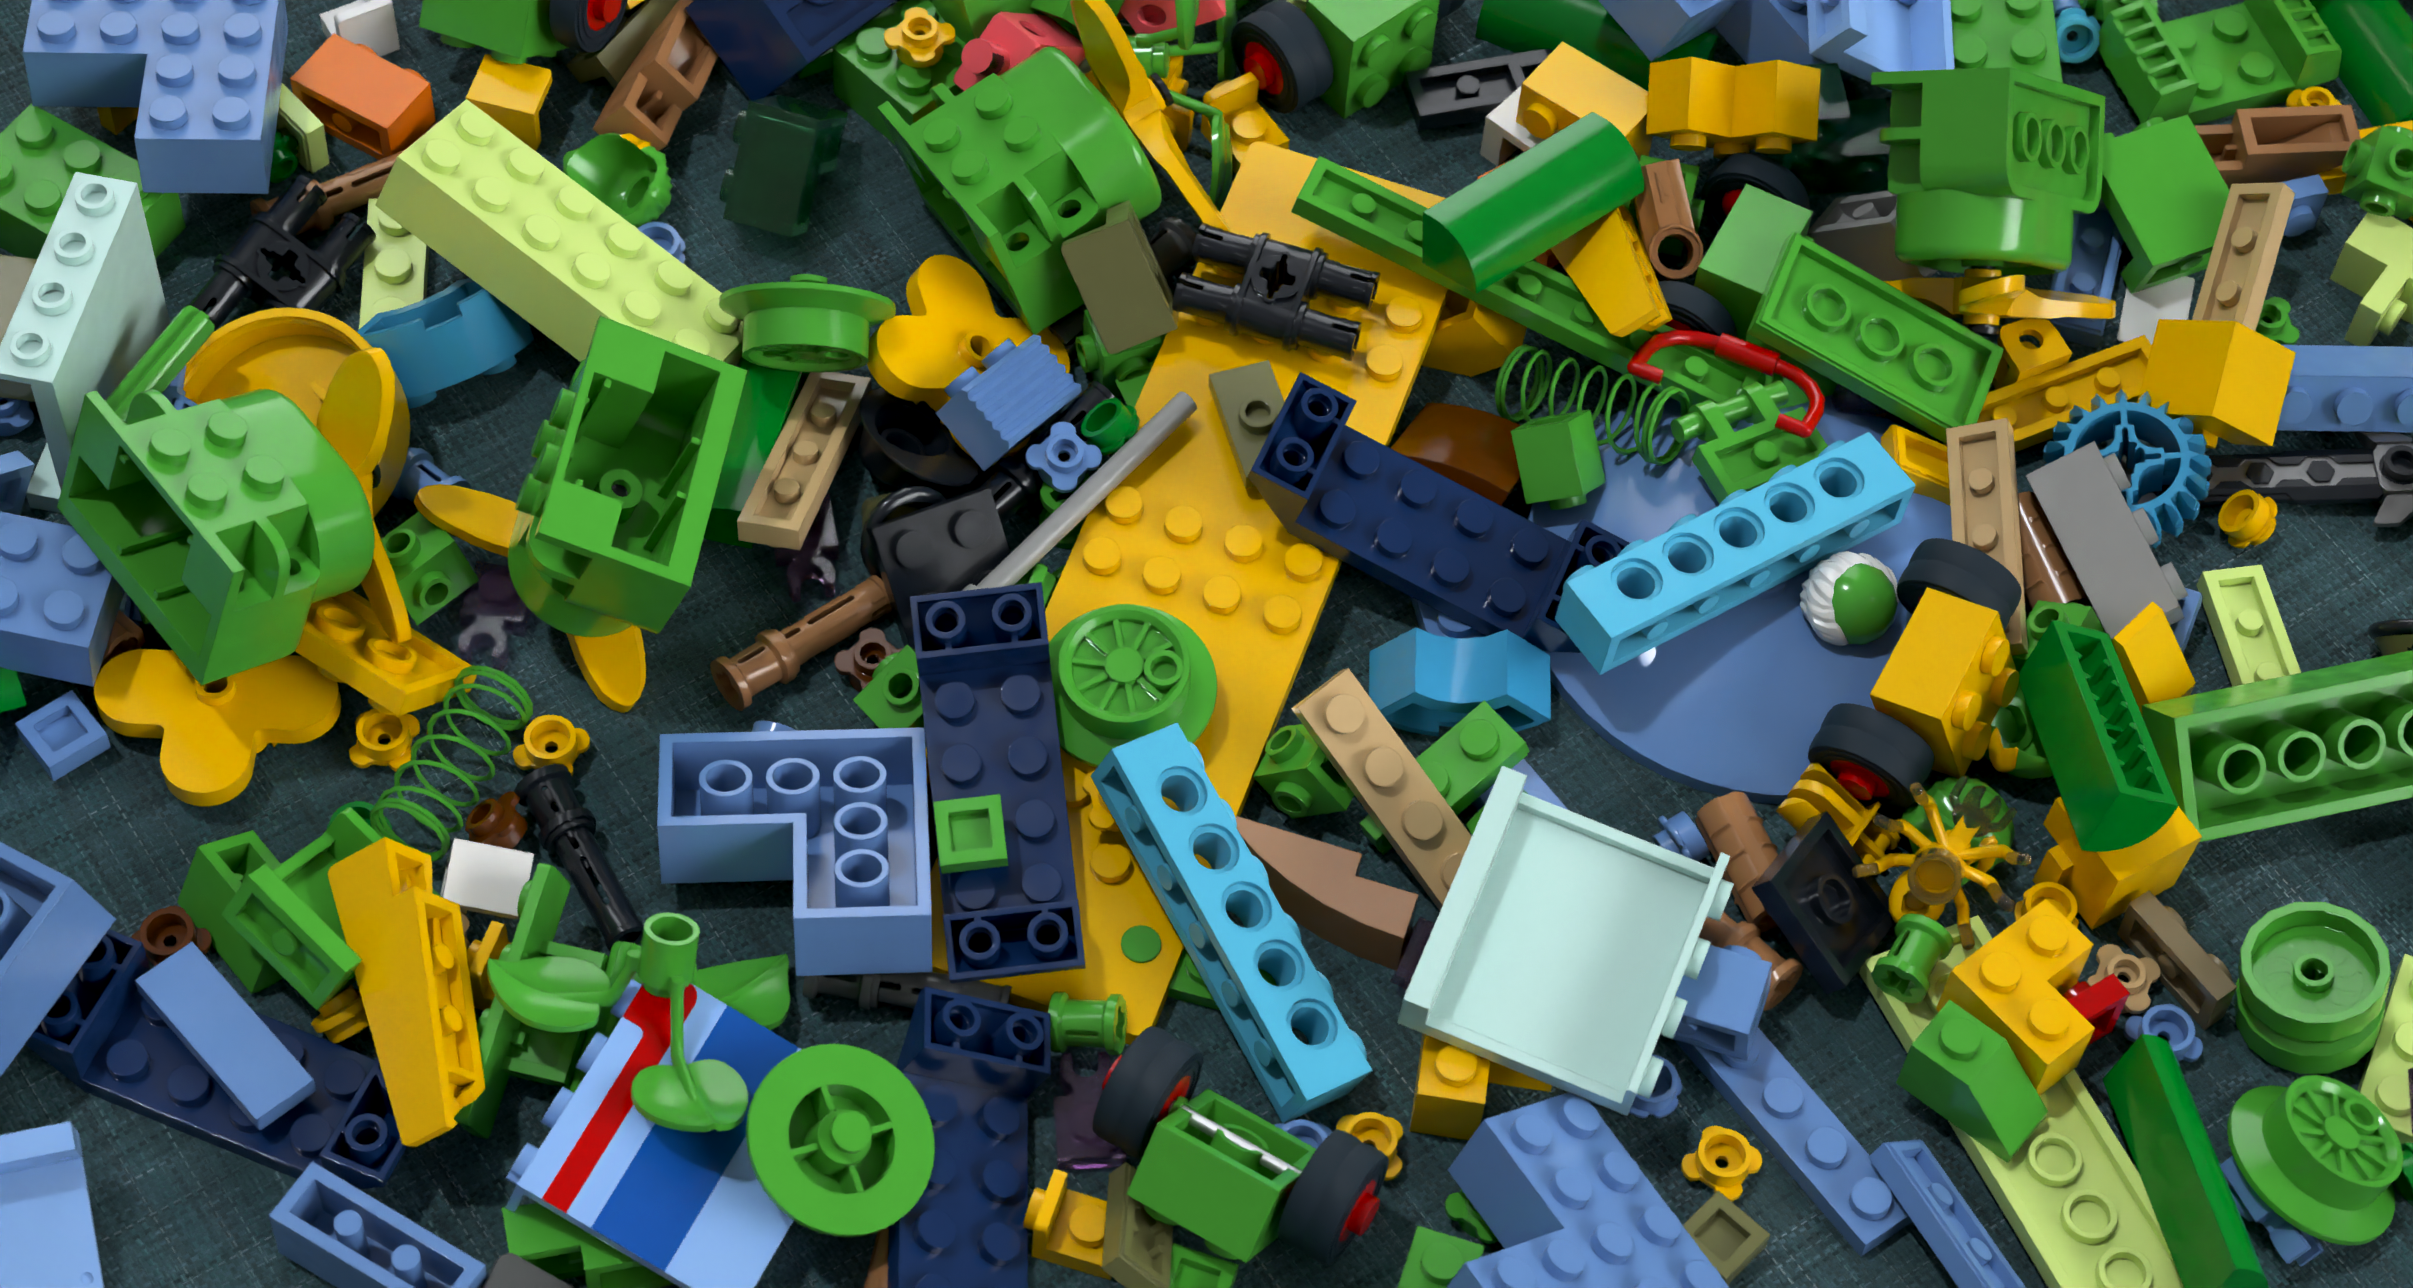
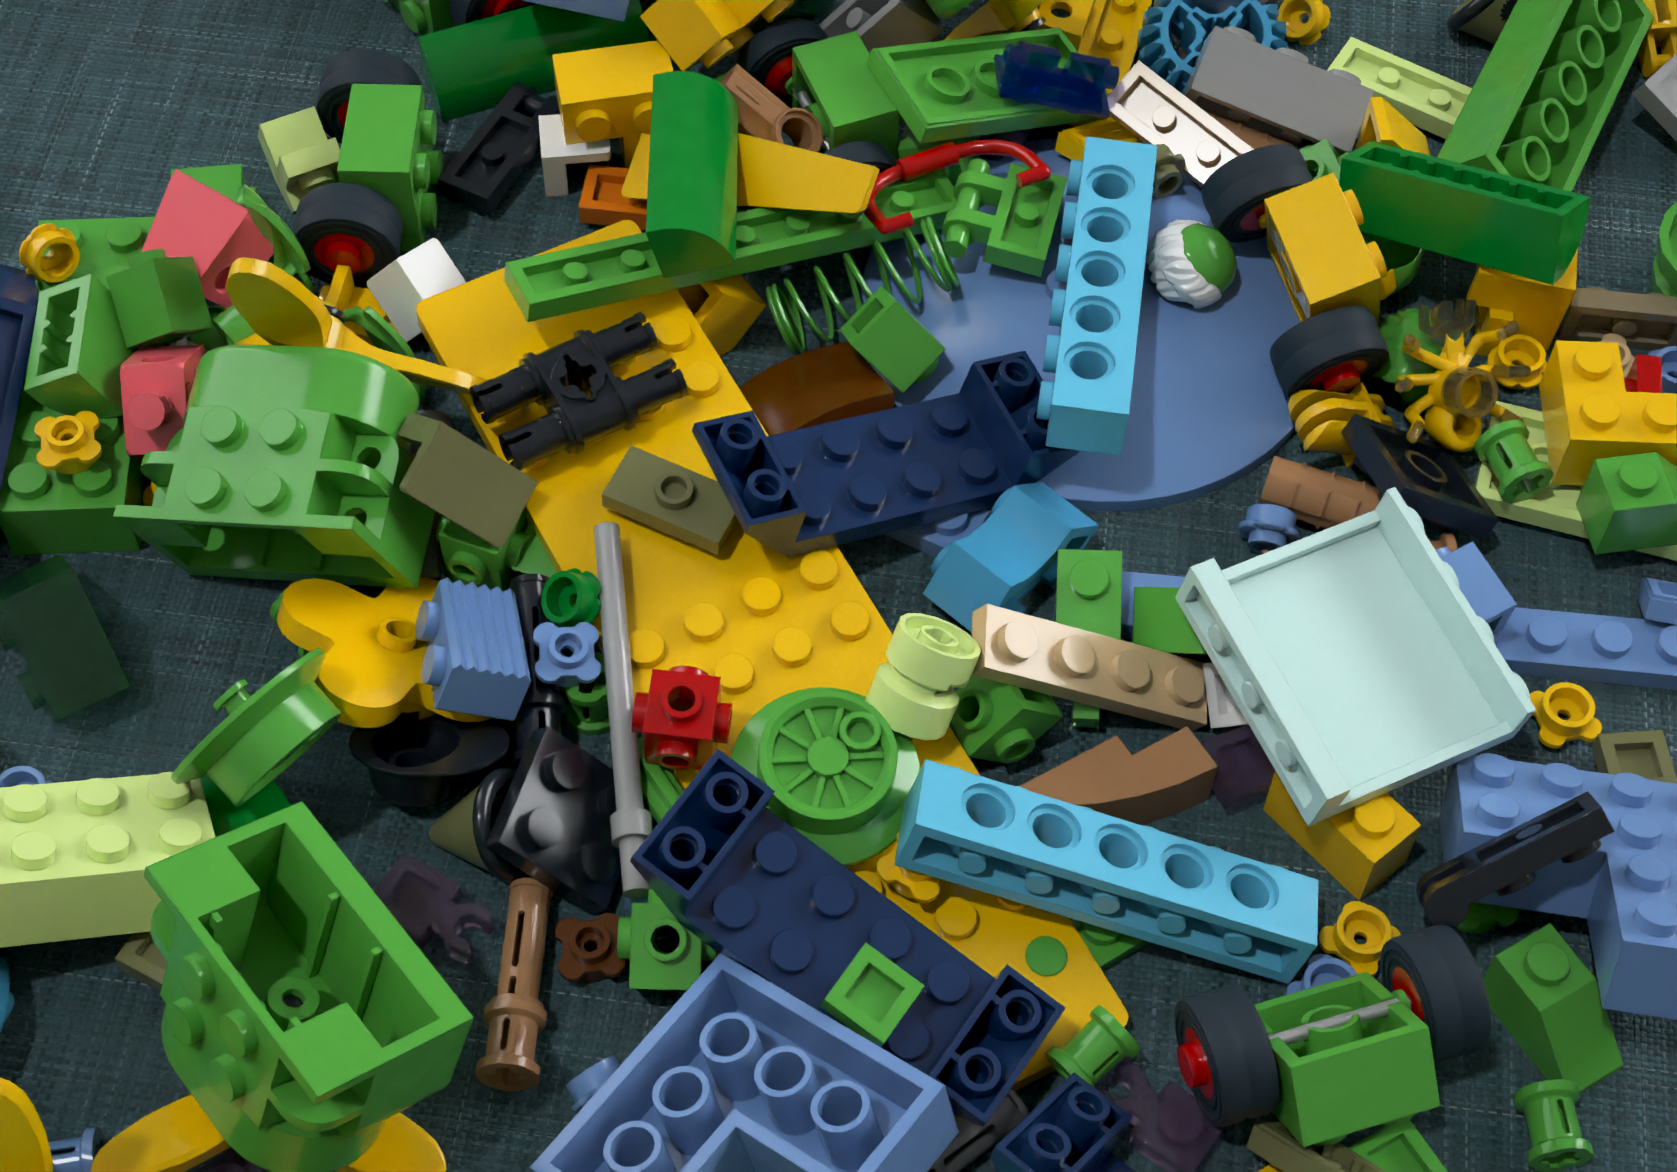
camera: 45 degrees left, 0 degrees up
(803, 461) = (364, 836): tan plate -> none
(1075, 561) = (681, 718): none -> red brick
(1258, 679) = (919, 680): none -> yellowish green wheel
(1289, 125) = (411, 279): none -> white panel
(1482, 1161) = (1512, 858): none -> black plate
(1920, 388) = (1031, 75): none -> clear blue hinge
(1927, 516) = (1167, 171): none -> olive plate

